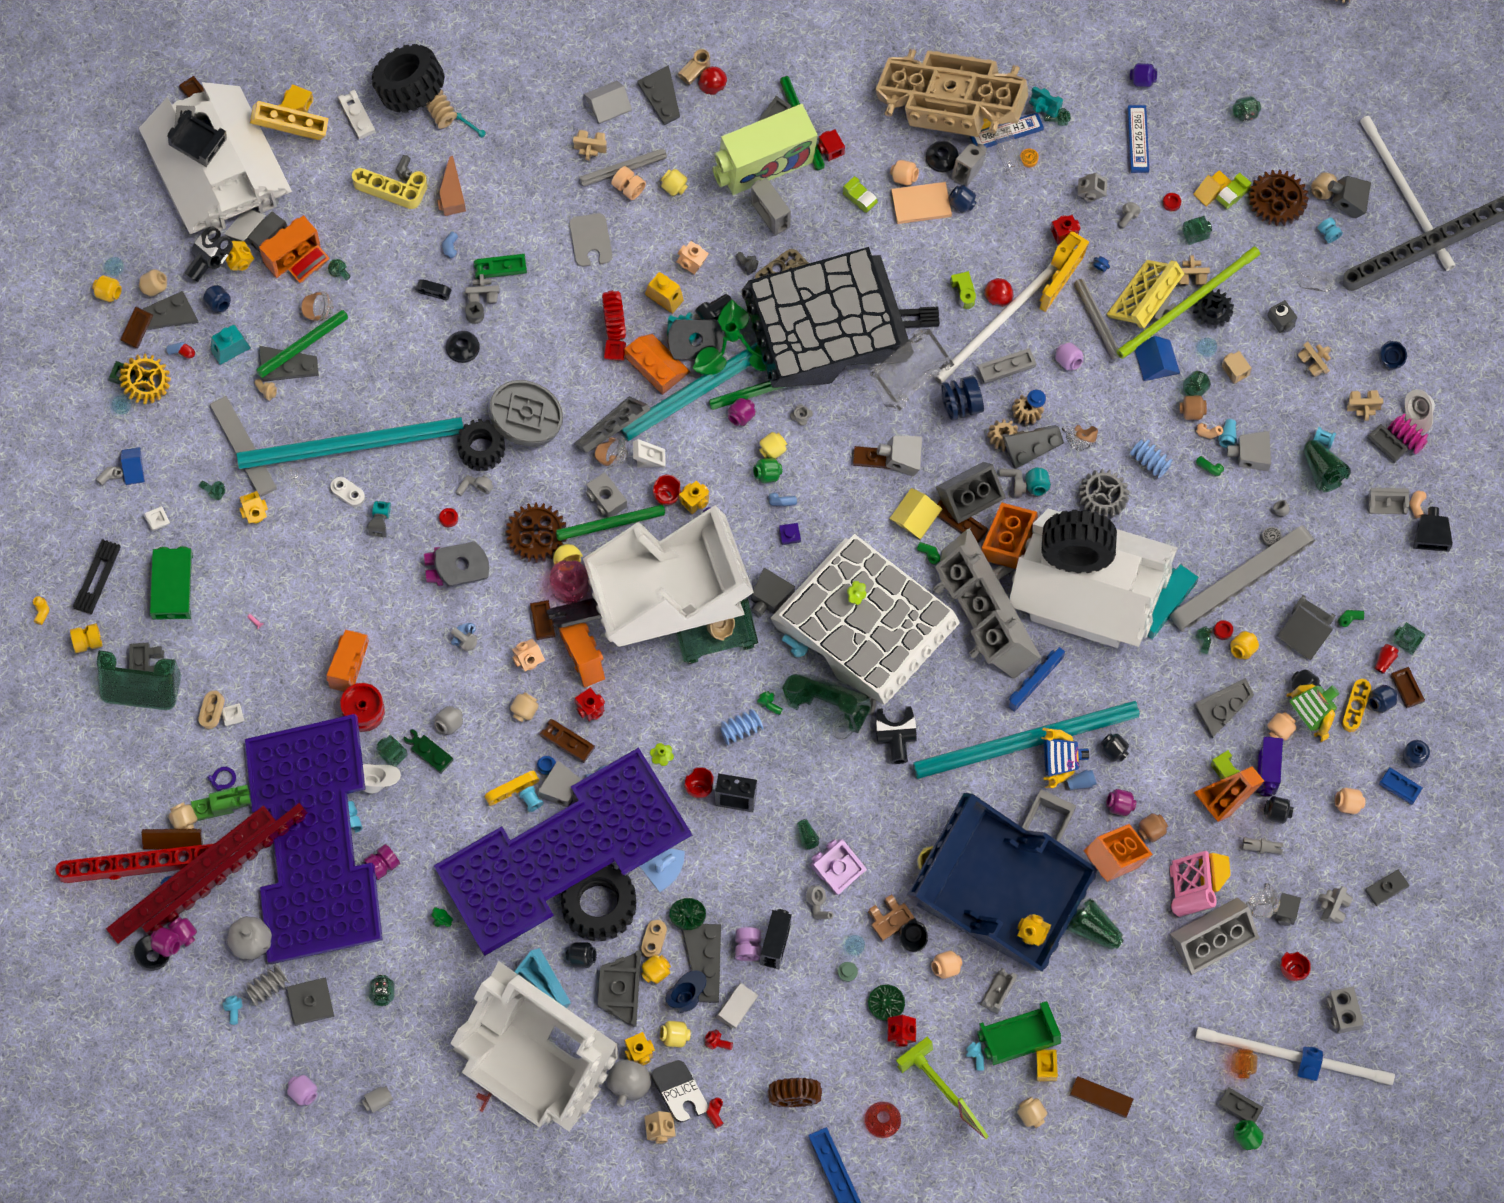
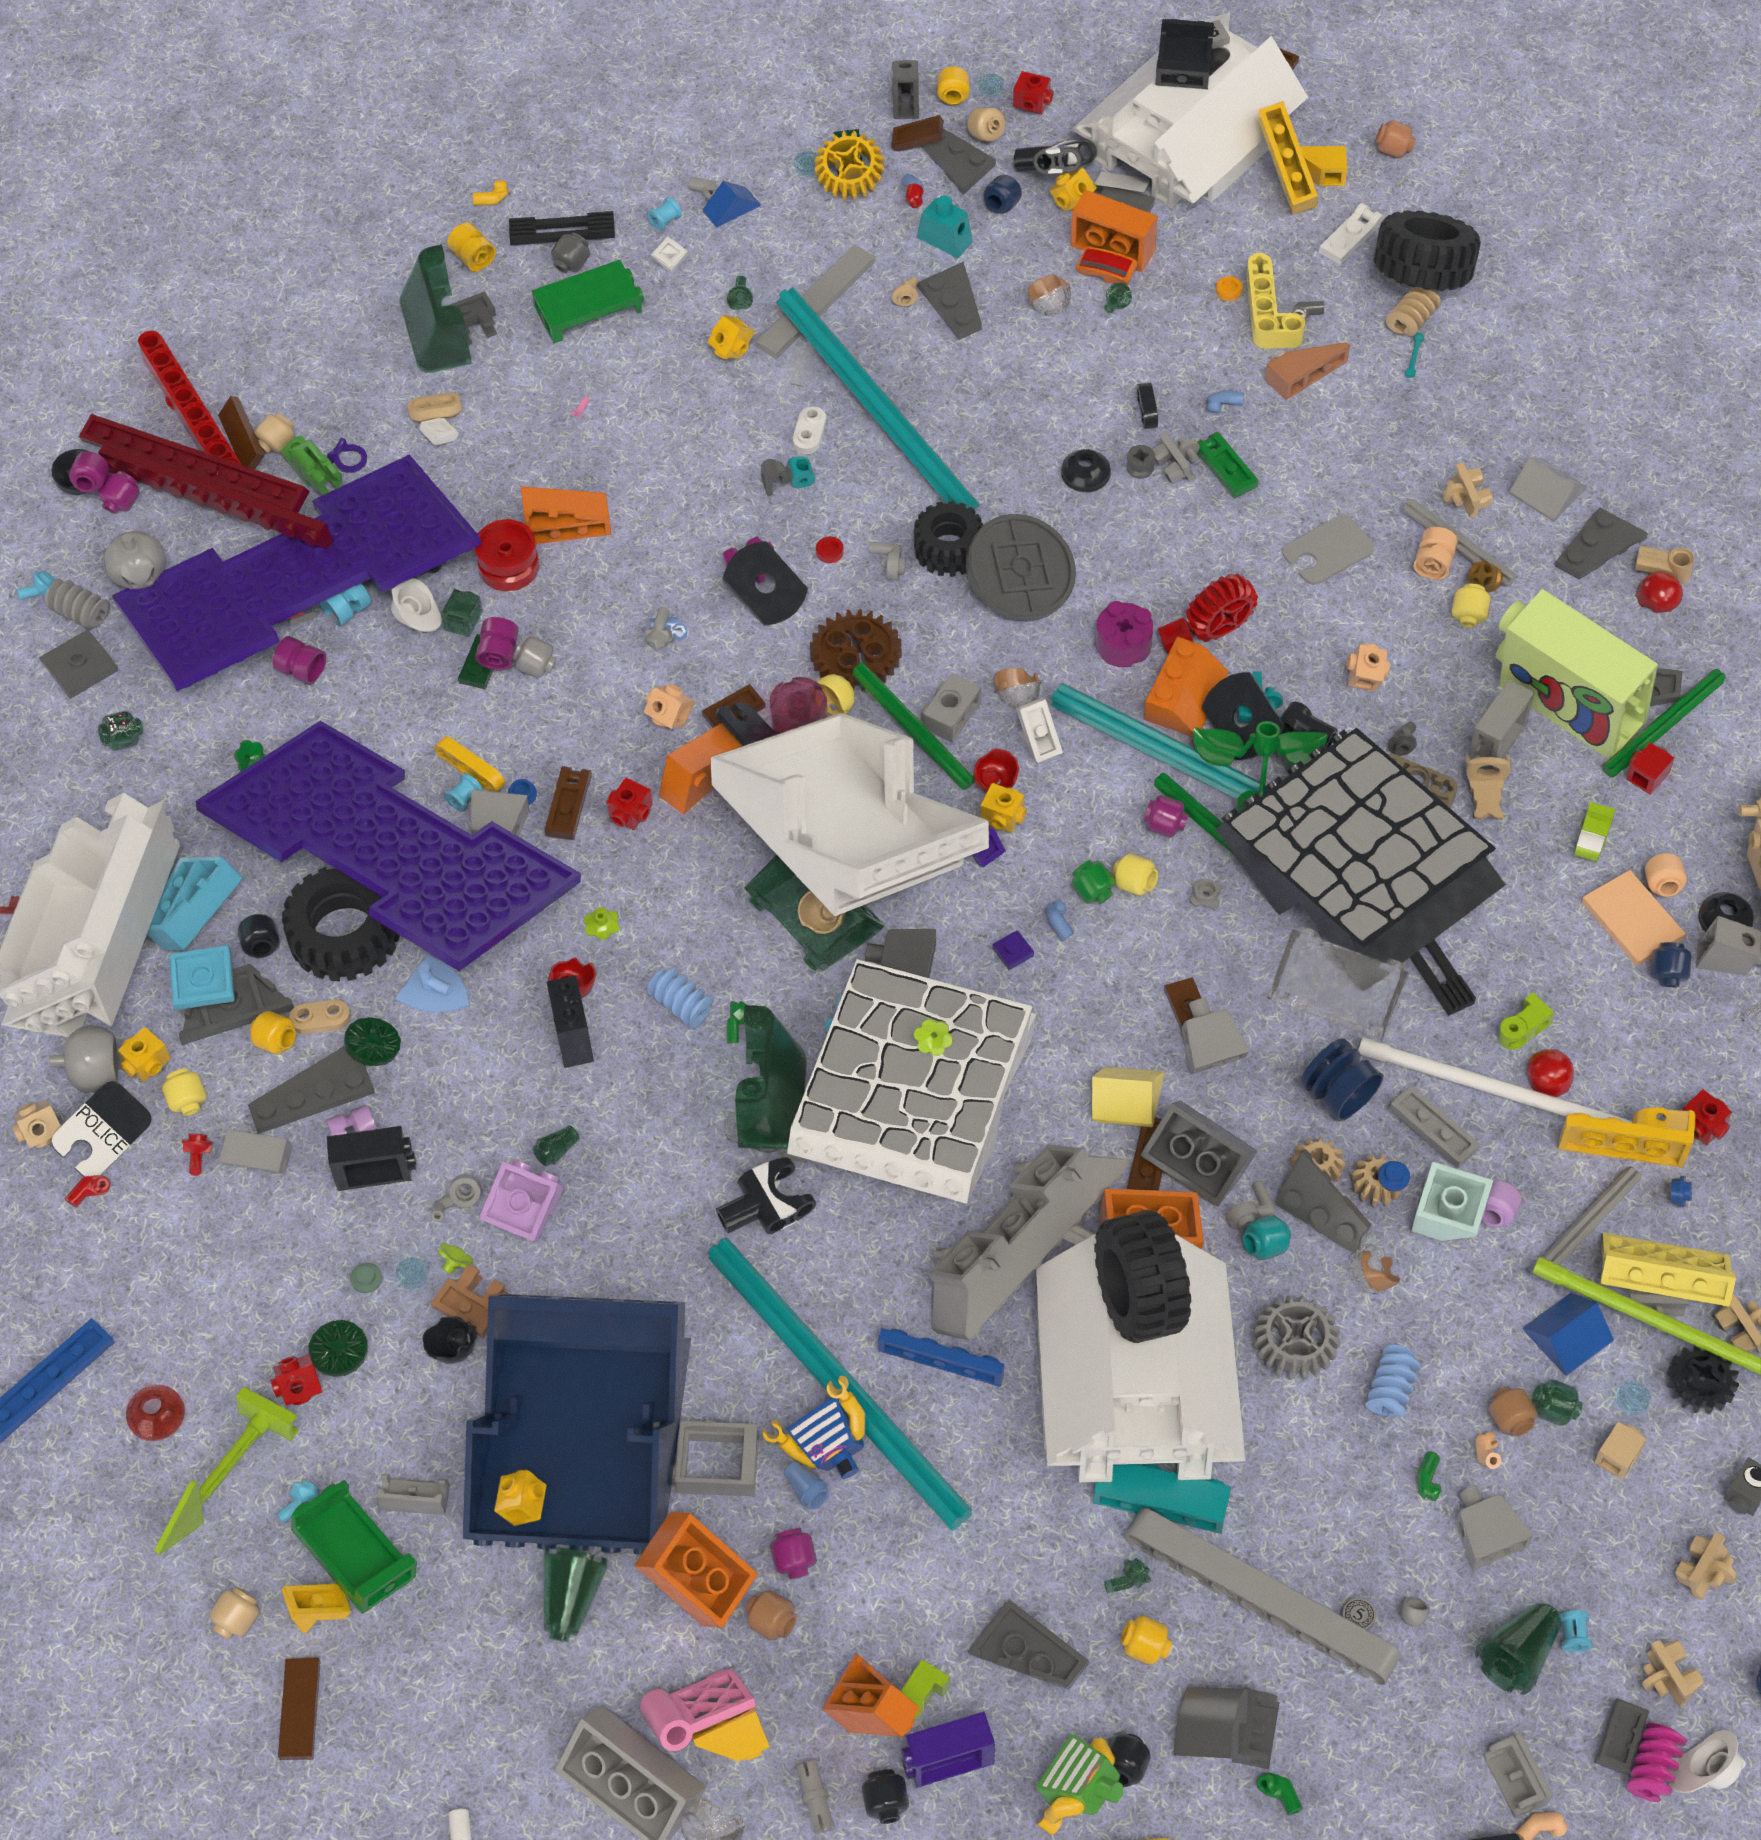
camera: 70 degrees right, 10 degrees down
(94, 317) = (905, 81): none -> dark grey torso
(120, 508) = (664, 213): none -> medium azure bush
(124, 578) = (570, 252): none -> dark grey head
(141, 244) = (1032, 92): none -> red brick
(296, 54) = (1395, 139): none -> nougat head
(302, 343) = (988, 299): green axle -> none
(362, 203) = (1229, 288): none -> light orange tile
(435, 736) = (497, 643): none -> magenta wheel
(524, 707) = (593, 733): tan head -> none
(601, 996) = (201, 977): none -> medium azure plate
(602, 377) = (1124, 634): none -> magenta brick
(612, 423) = (1071, 675): dark grey wing -> none
(661, 167) = (1479, 573): none -> pearl gold wheel
(663, 290) = (1294, 646): yellow torso -> none
(686, 992) = (247, 1081): dark blue piece -> none
(794, 1092) = (144, 1271): reddish brown gear -> none
(800, 234) = (1487, 784): none -> tan hair
(857, 917) = (454, 1257): none -> lime plant
(931, 552) = (1080, 1135): green arm -> none
(946, 964) = (426, 1404): light nougat head -> none
(1062, 379) = (1451, 1203): none -> light aqua slope
(1114, 747) = (880, 1510): black head -> none
(1223, 630) = (1160, 1602): red tile -> none
(1229, 434) = (1500, 1481): medium azure cone -> none
(1281, 726) = (1032, 1749): light nougat head -> none

